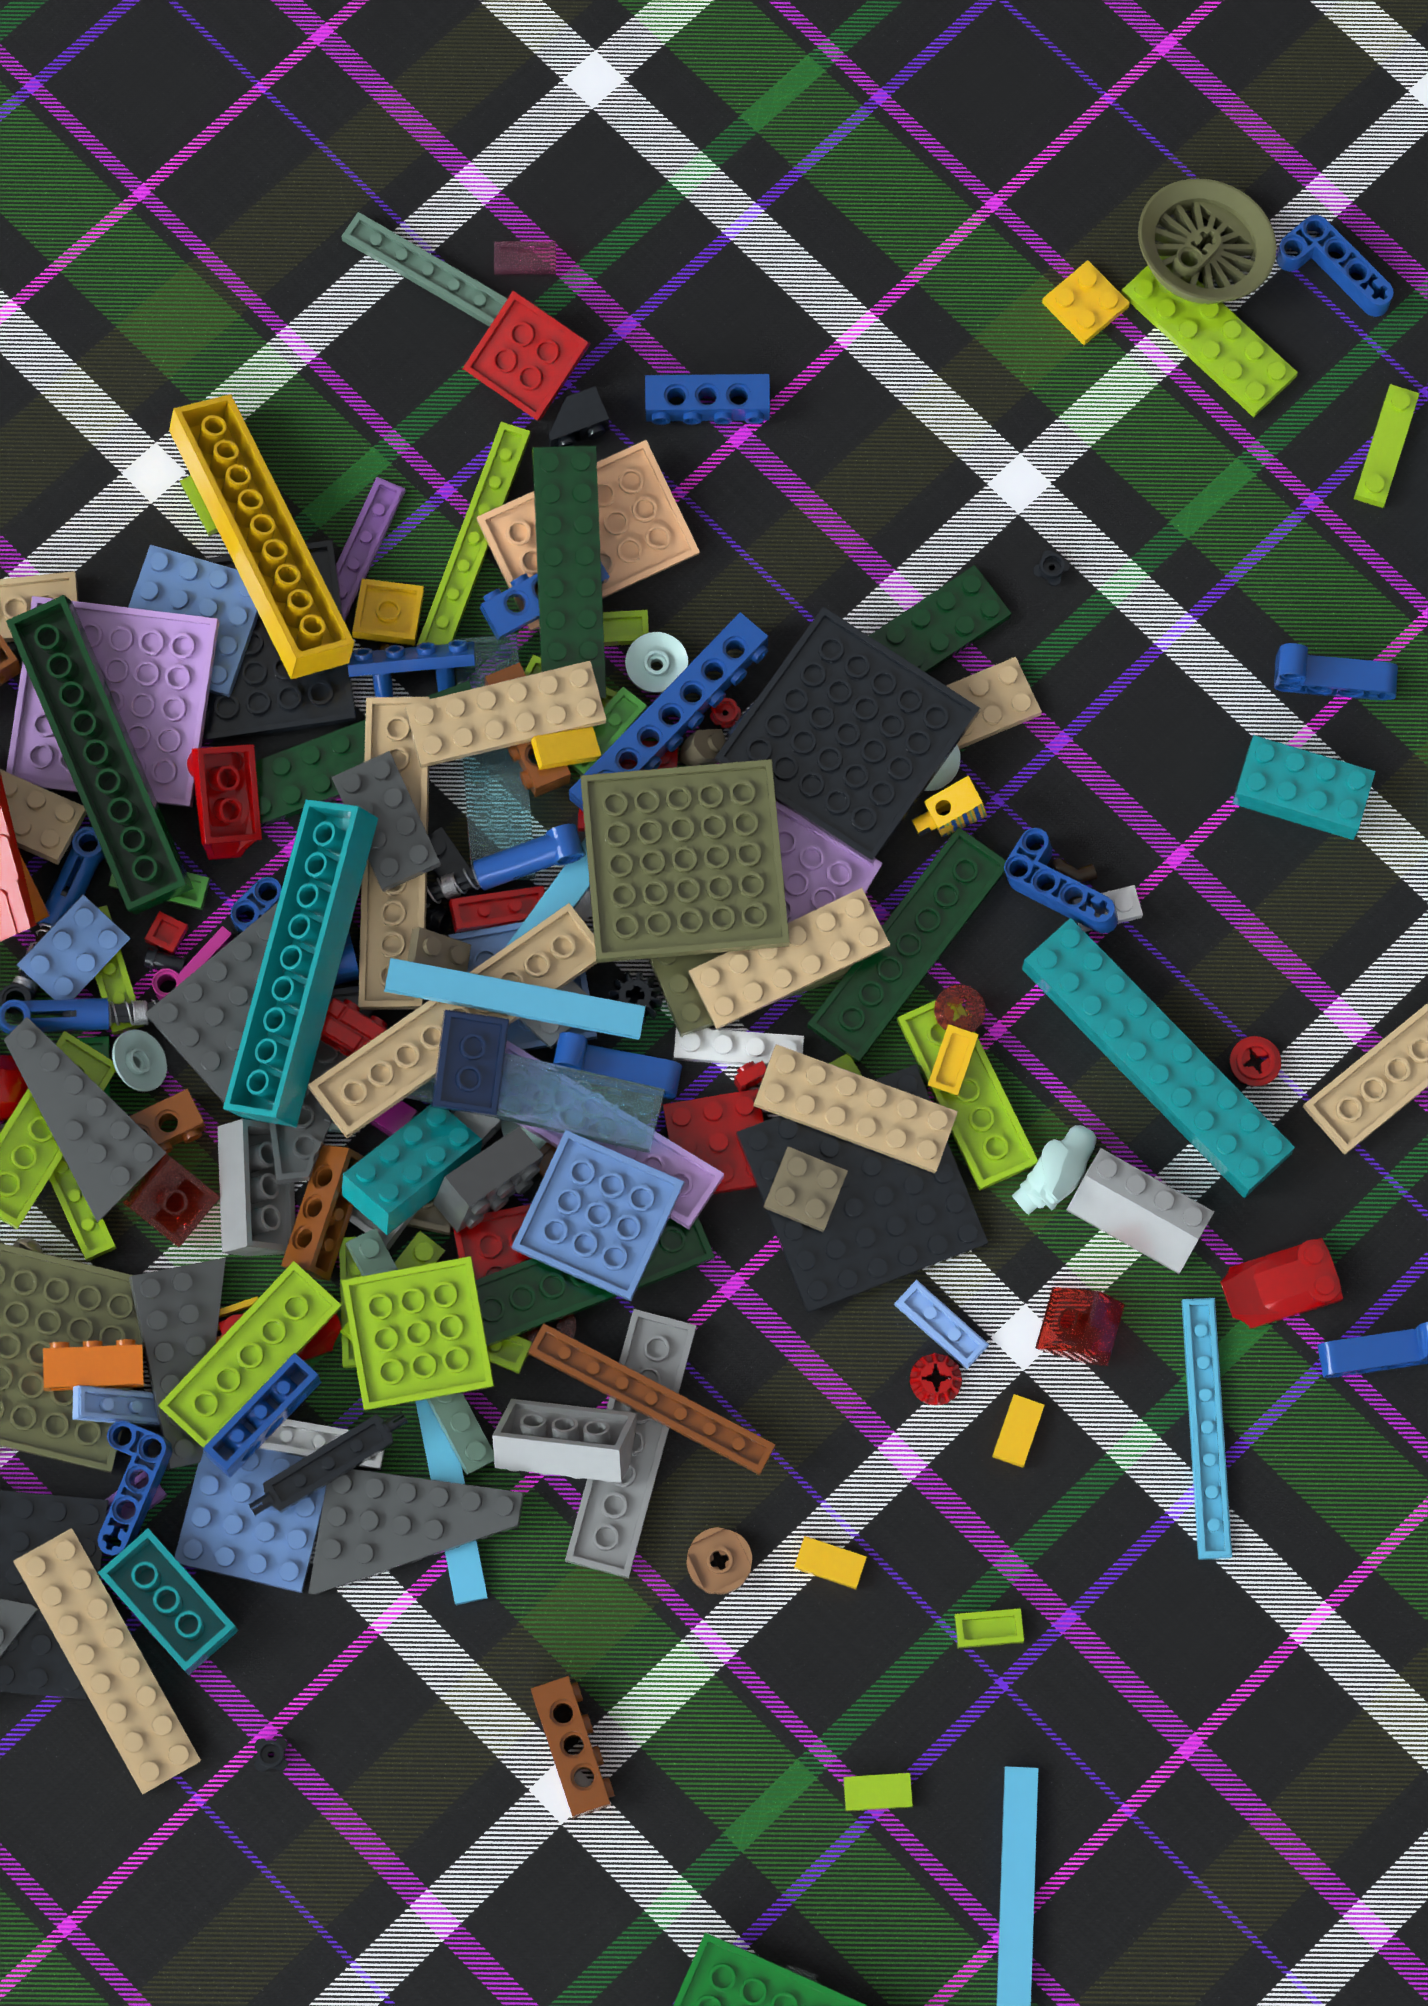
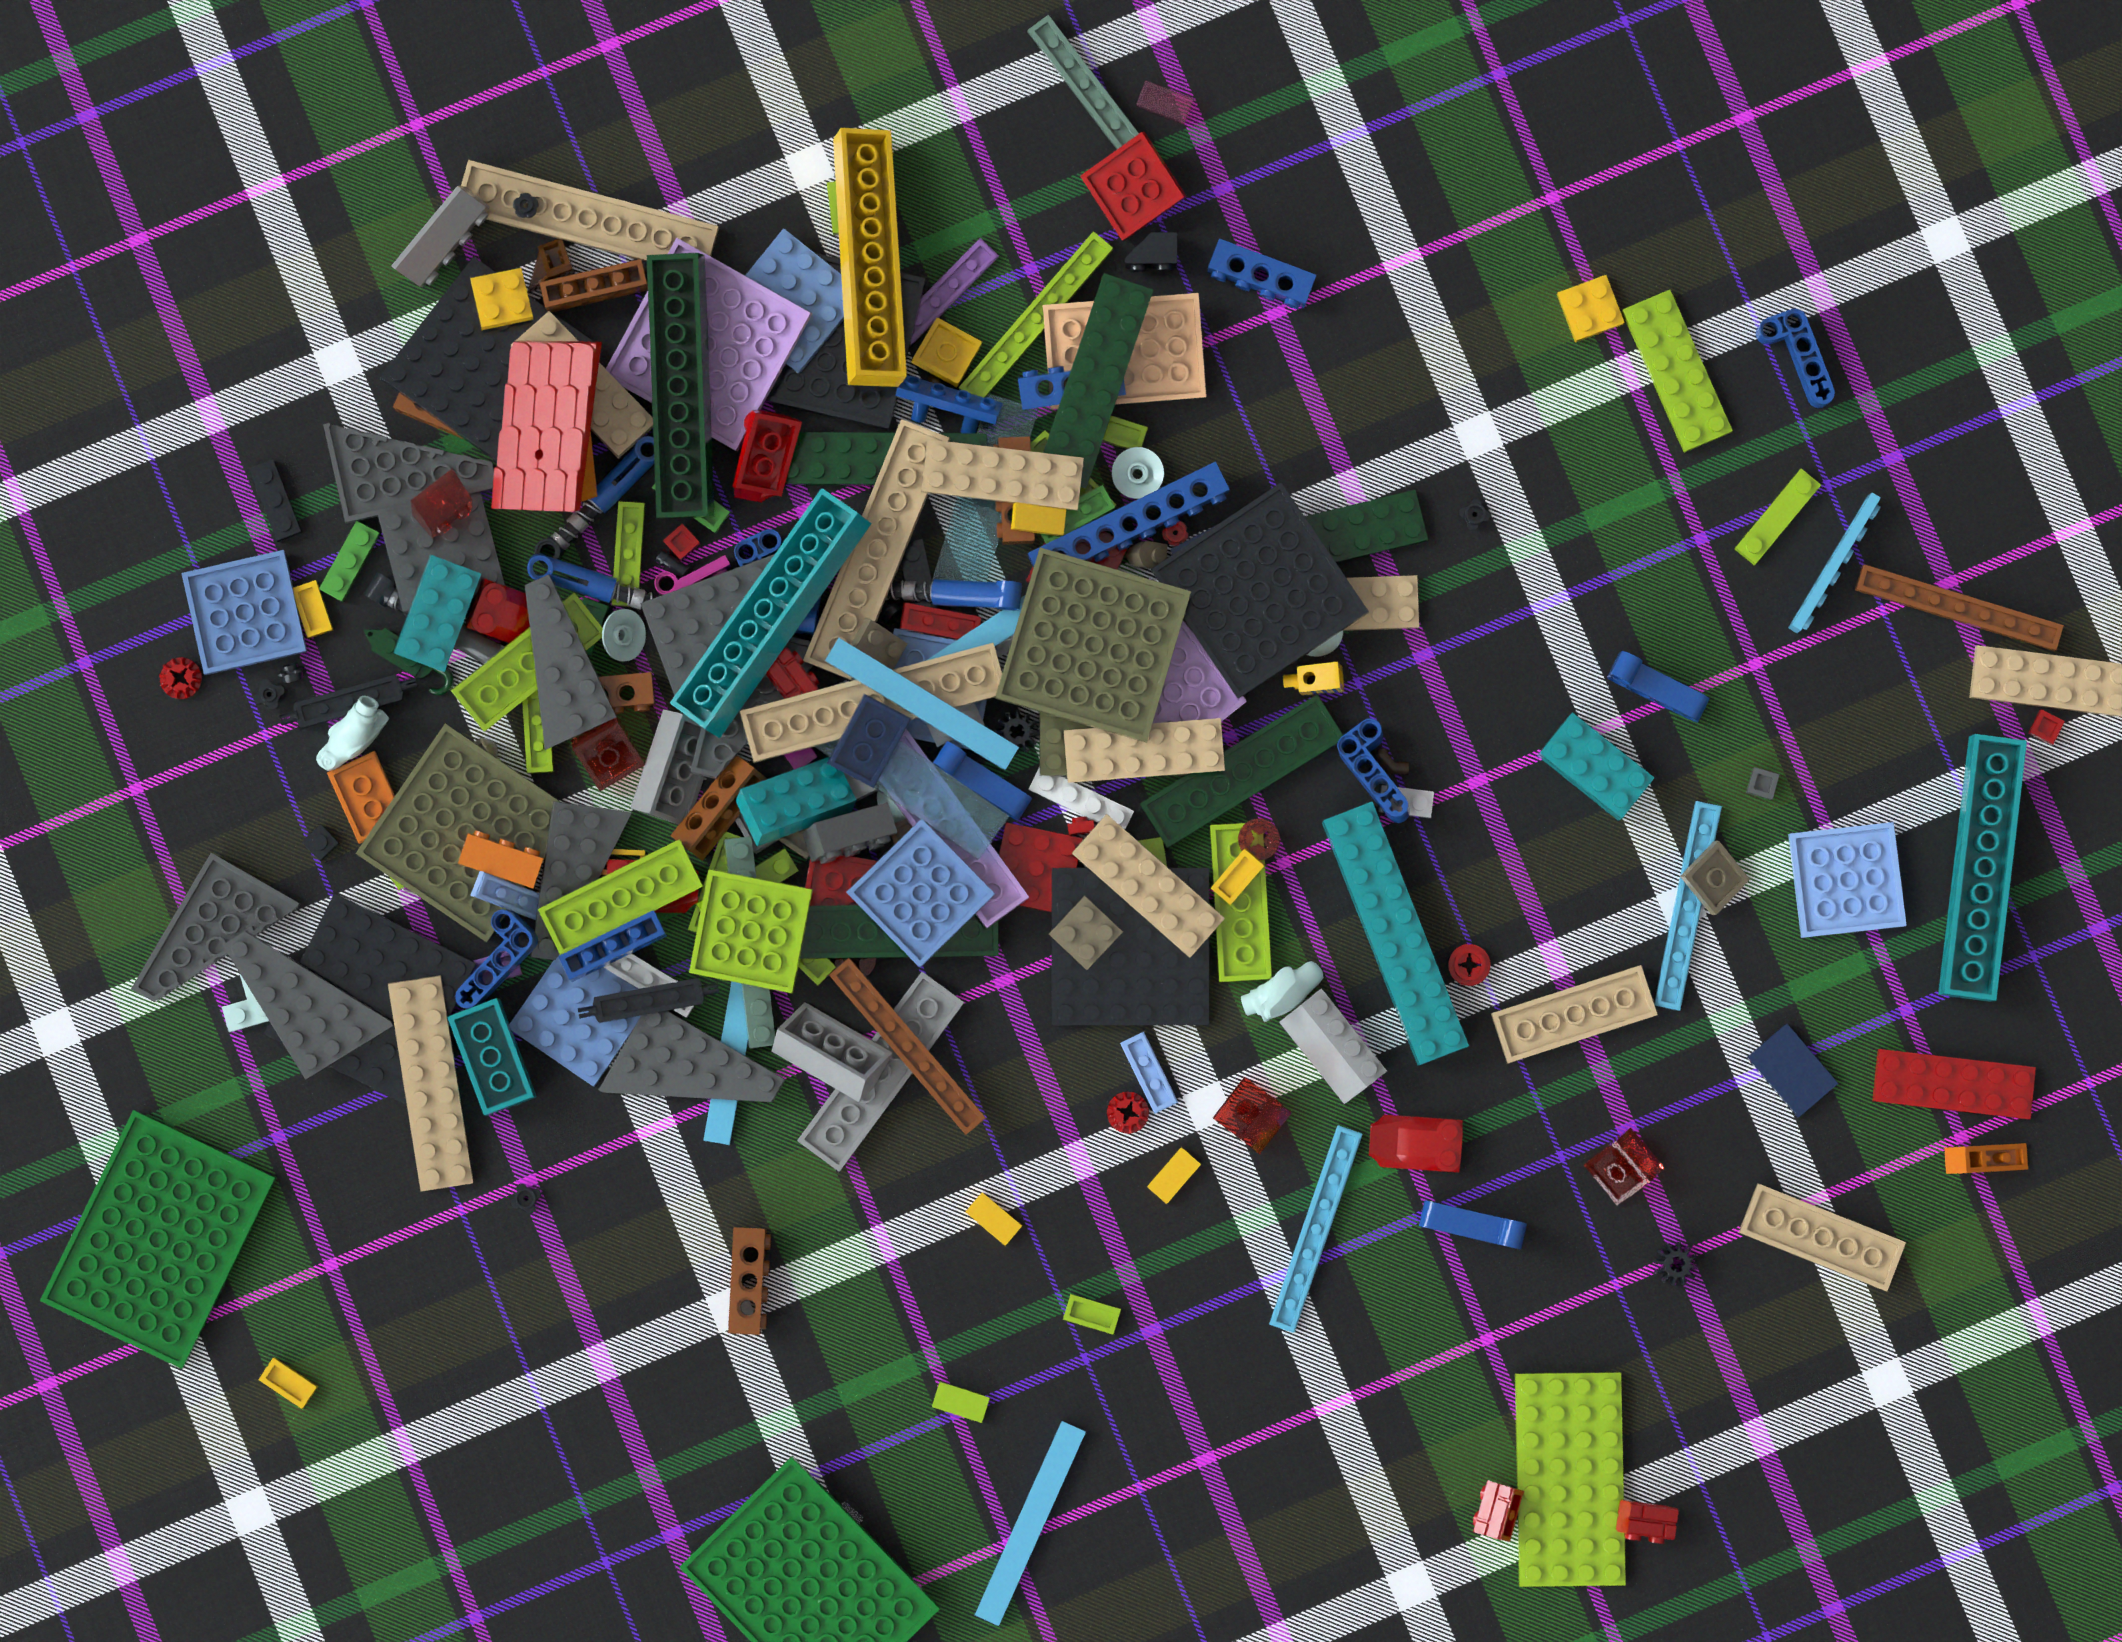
camera: 20 degrees right, 10 degrees up
(73, 950) = (605, 531): medium blue plate -> none
(400, 841) = (882, 502): dark grey plate -> none
(711, 1578) = (900, 1175): medium nougat plate -> none
(1227, 210) = (1735, 281): olive piece -> none

